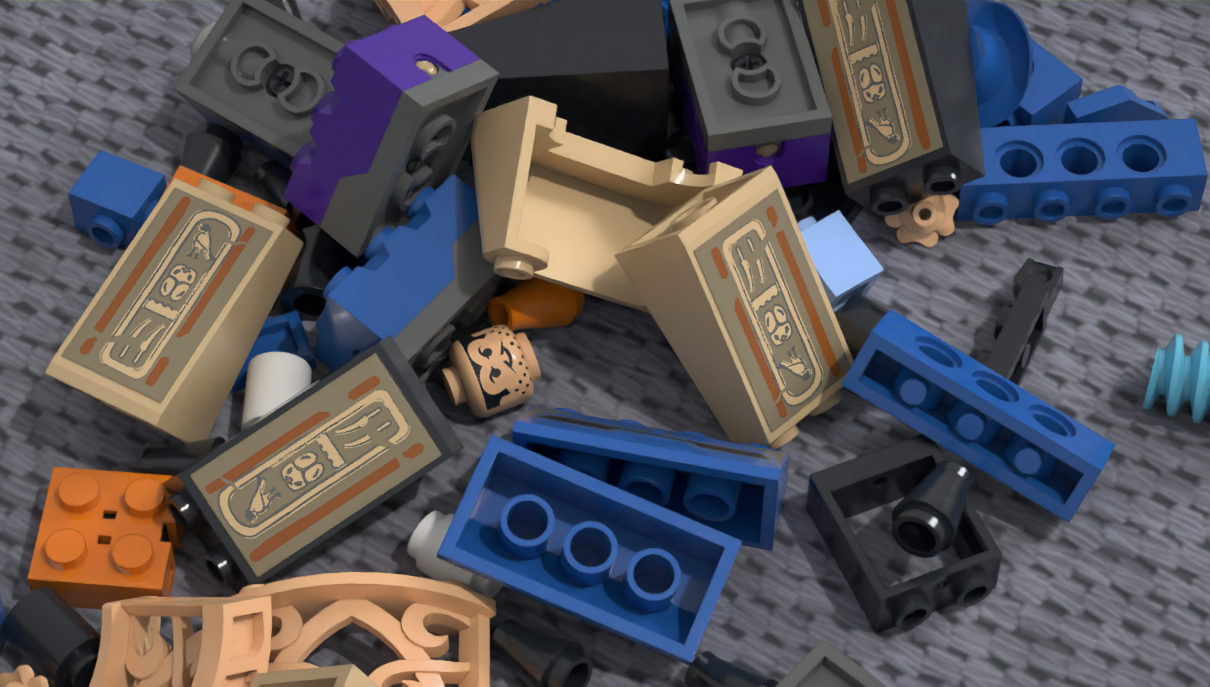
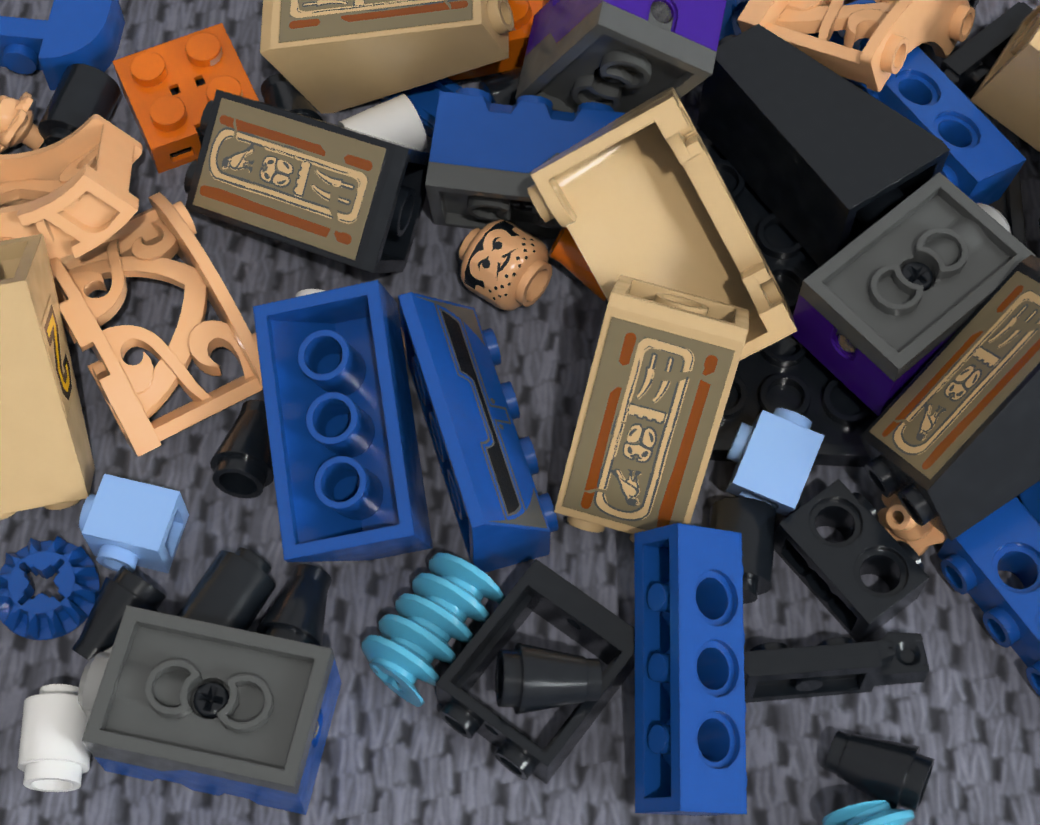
camera: 60 degrees right, 10 degrees up
(813, 588) = (428, 623): none -> medium azure piece
(939, 271) = (835, 569): none -> black brick
(1122, 345) = (881, 768): none -> black cone

